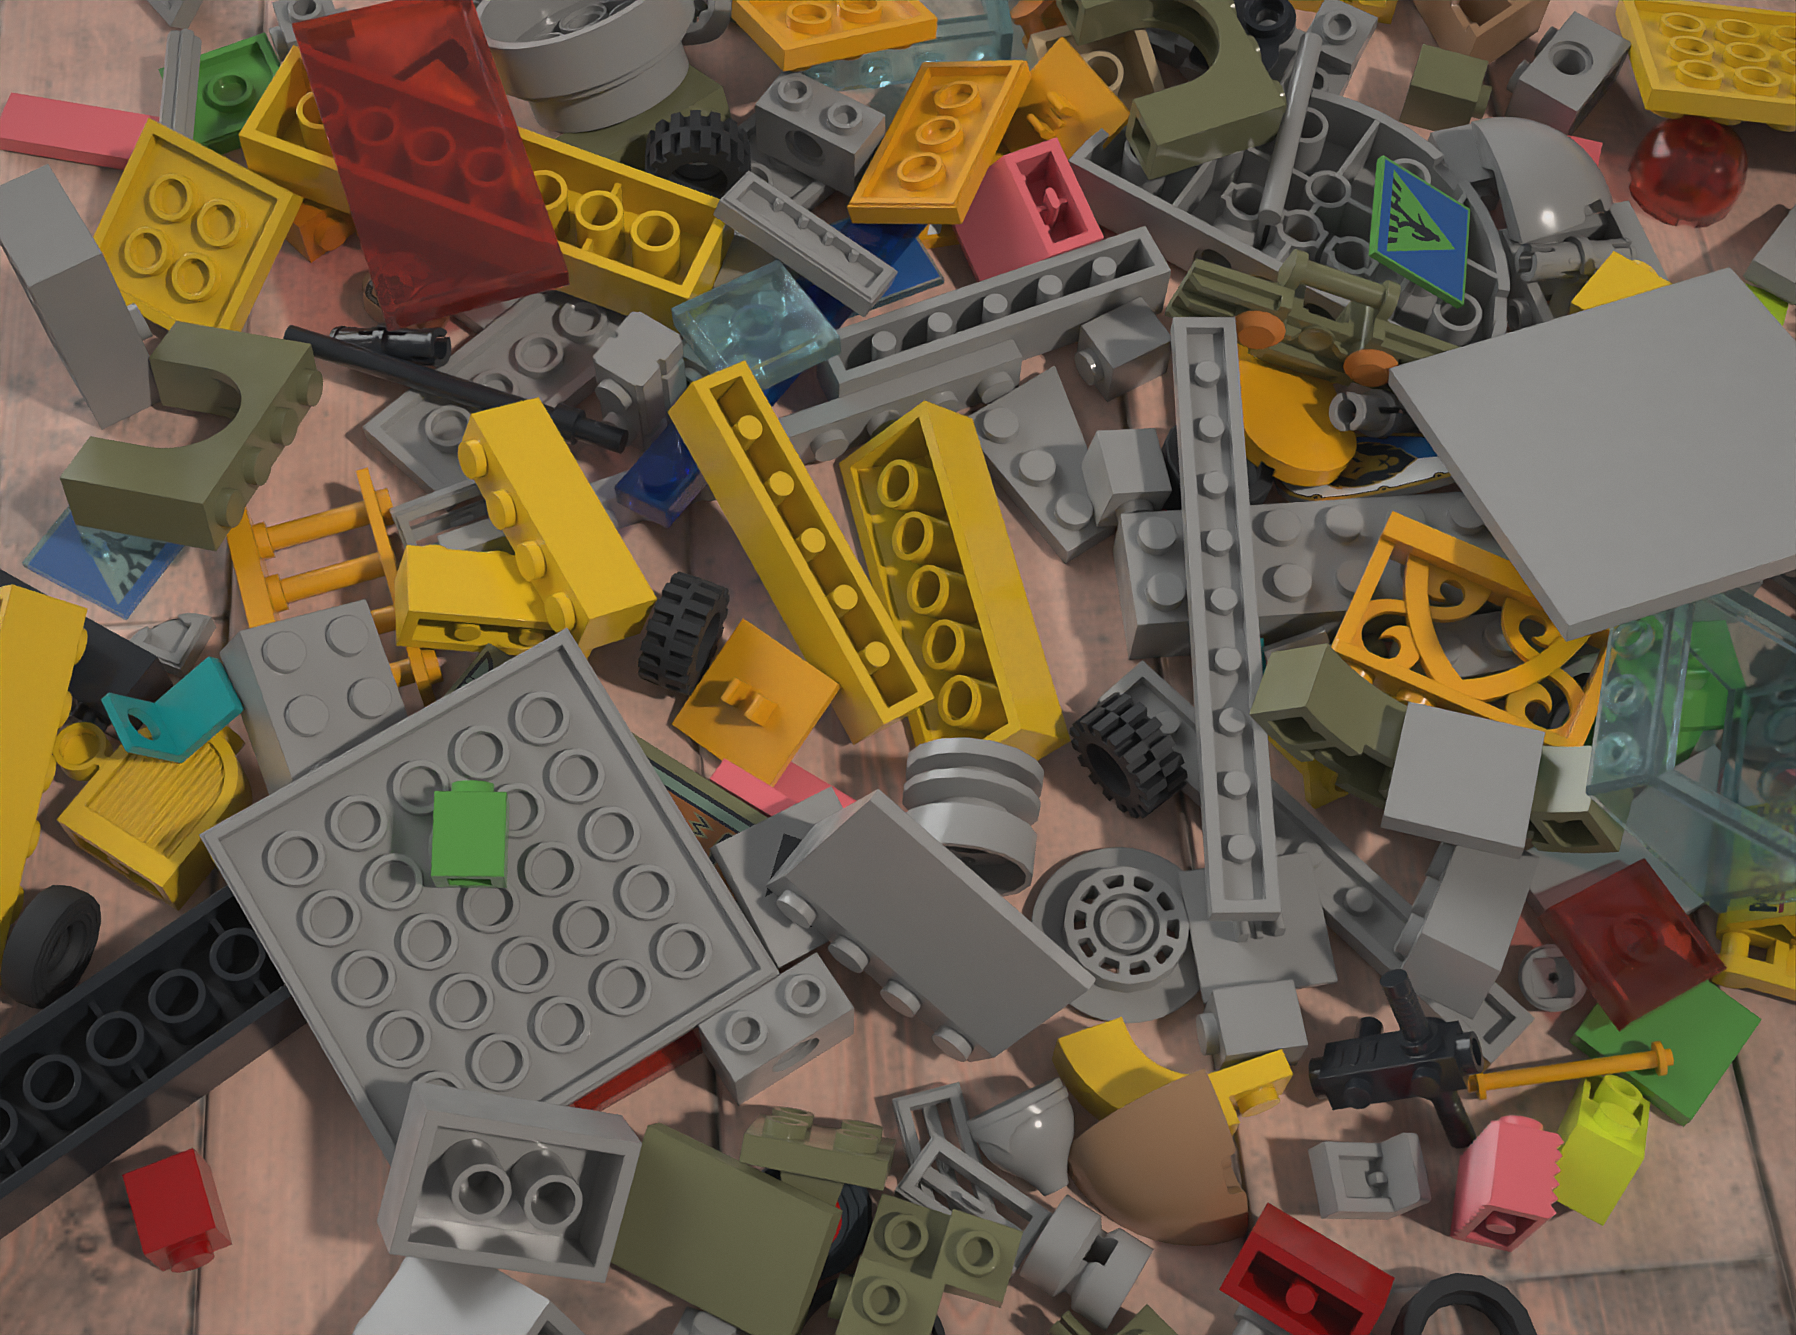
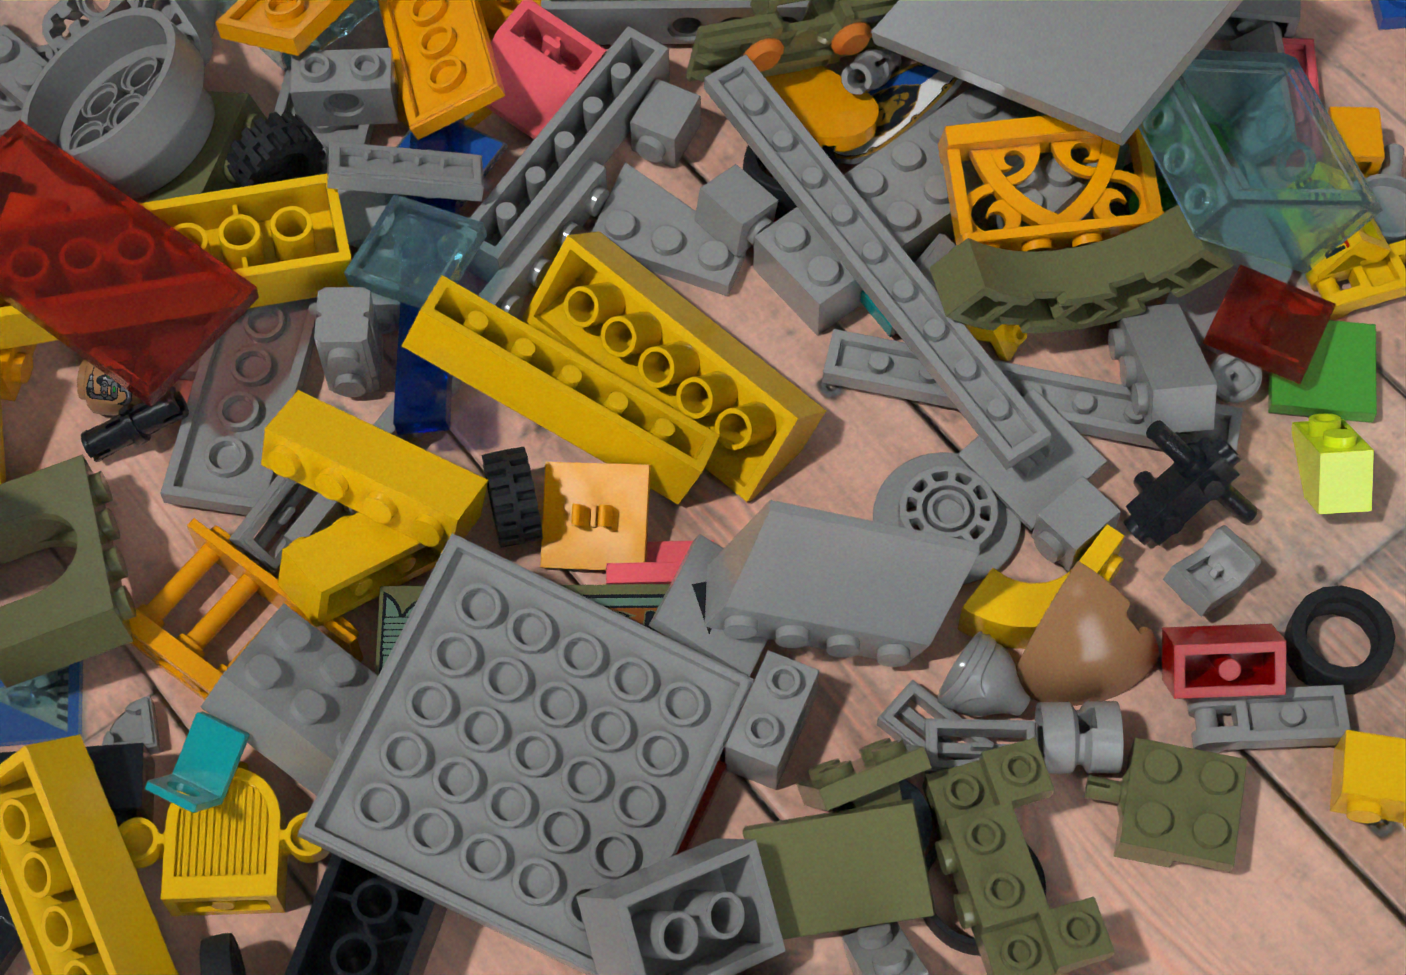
camera: 30 degrees left, 0 degrees up
(470, 836) = (495, 712): bright green brick -> none
(569, 420) = (203, 426): black bar -> none
(978, 805) = (799, 473): light grey wheel -> none
(1128, 755) = (873, 396): black tyre -> none
(1463, 780) = (1111, 276): light grey tile -> none
(1506, 1184) = (1300, 520): coral brick -> none
(1656, 1058) = (1333, 386): light orange axle -> none

